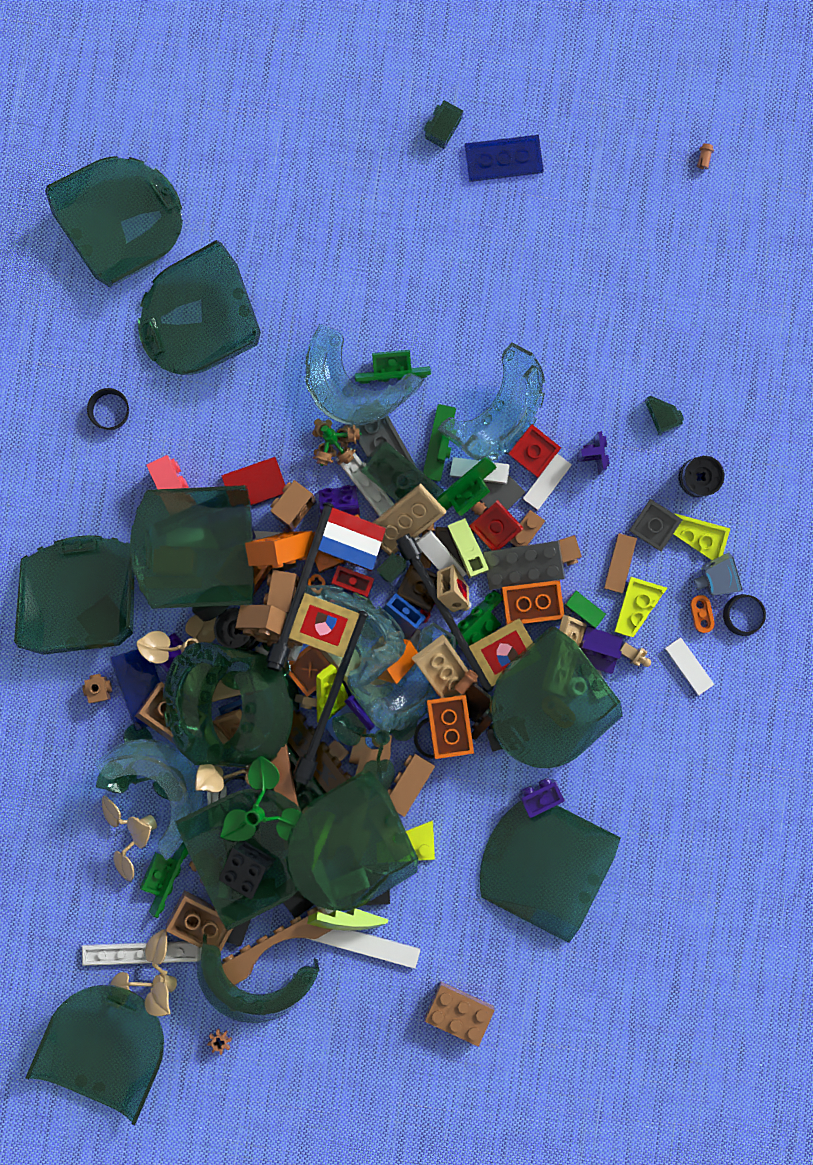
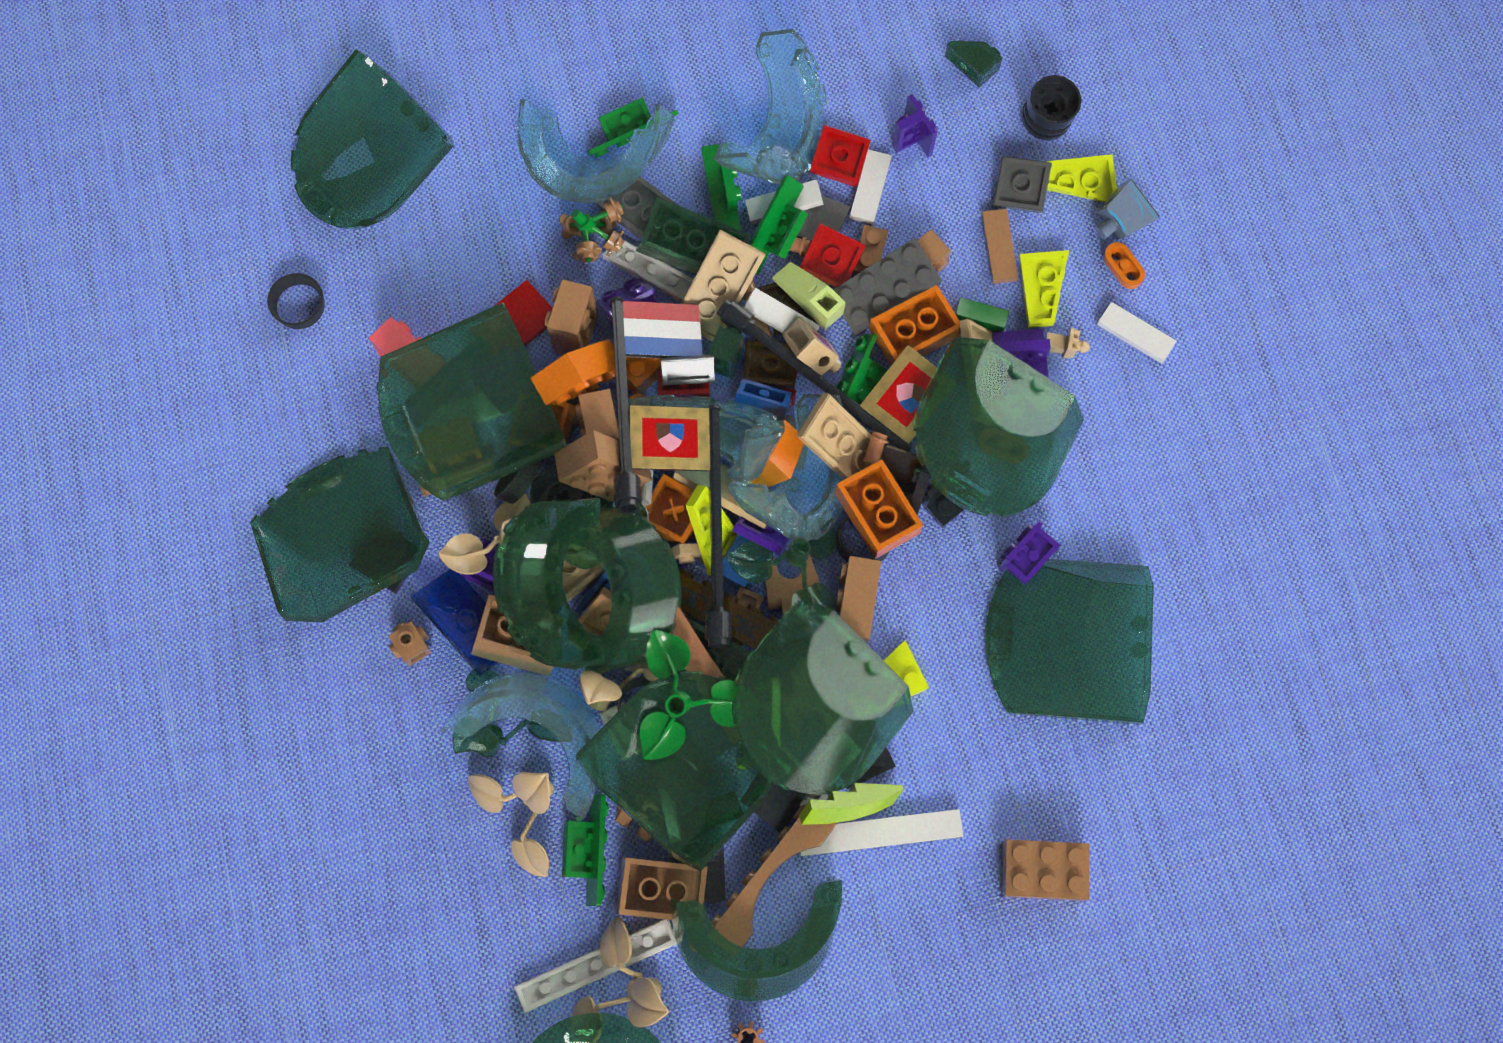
camera: 20 degrees left, 10 degrees down
(117, 216) = (221, 74): clear green windscreen -> none
(245, 868) = (692, 786): black bracket -> none
(358, 575) = (688, 370): none -> tile
(726, 615) = (1164, 266): black tyre -> none

